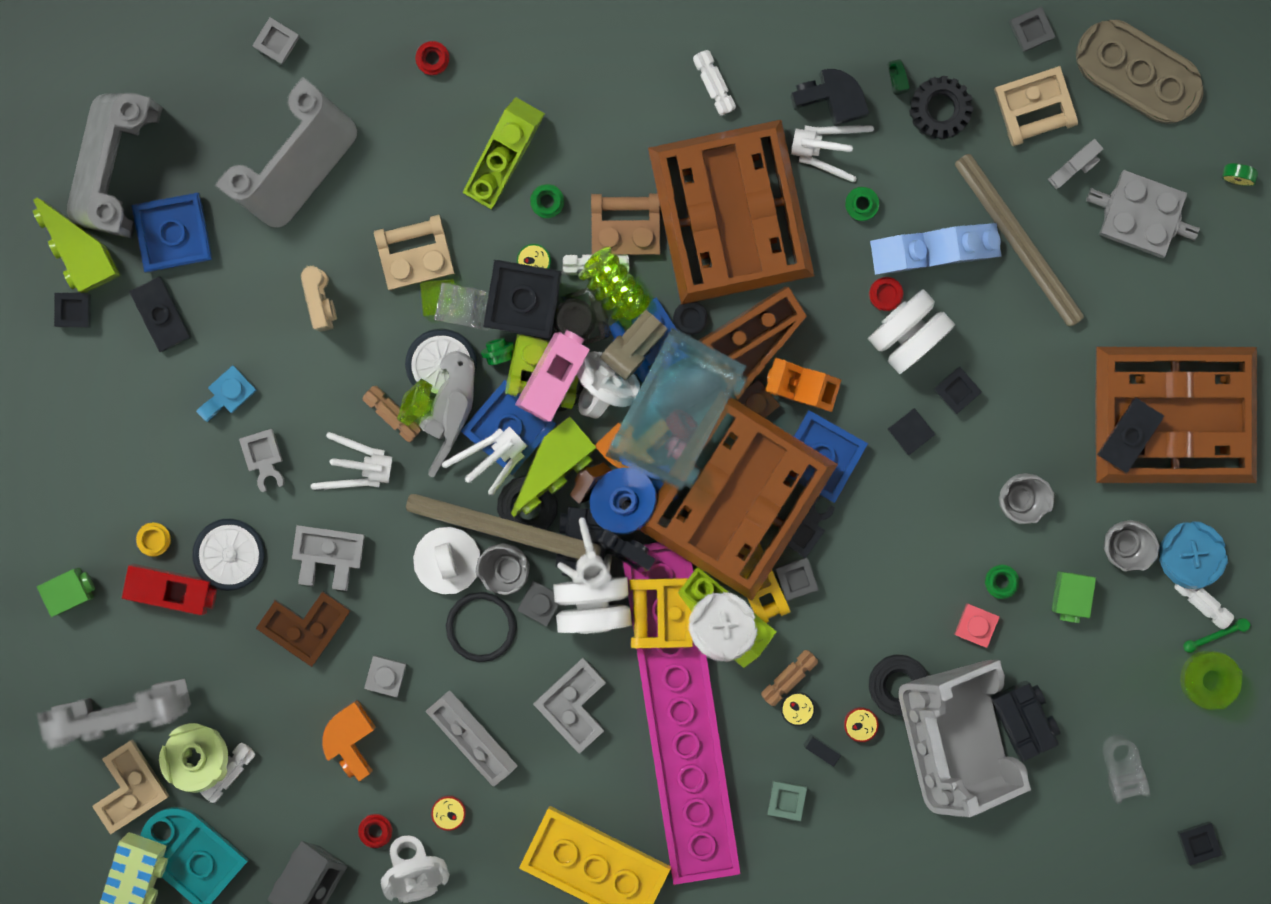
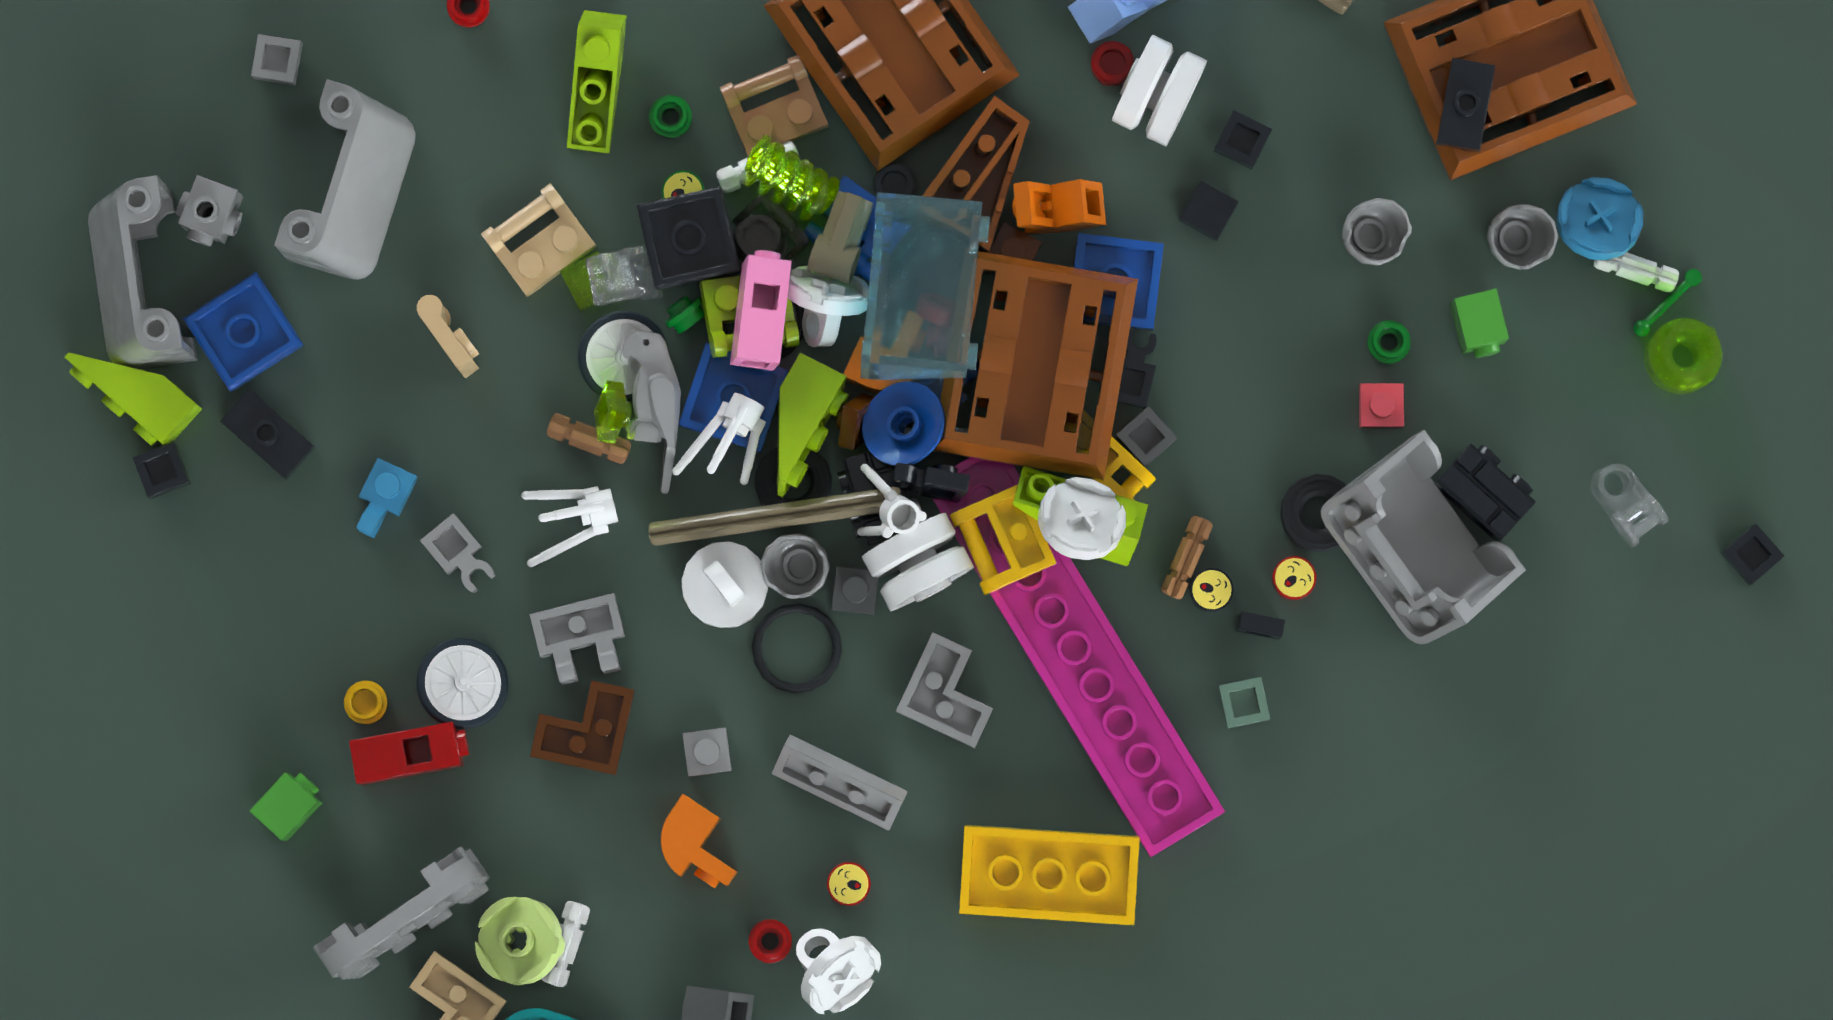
camera: 25 degrees left, 5 degrees down
(194, 134) = (209, 196): none -> light grey brick

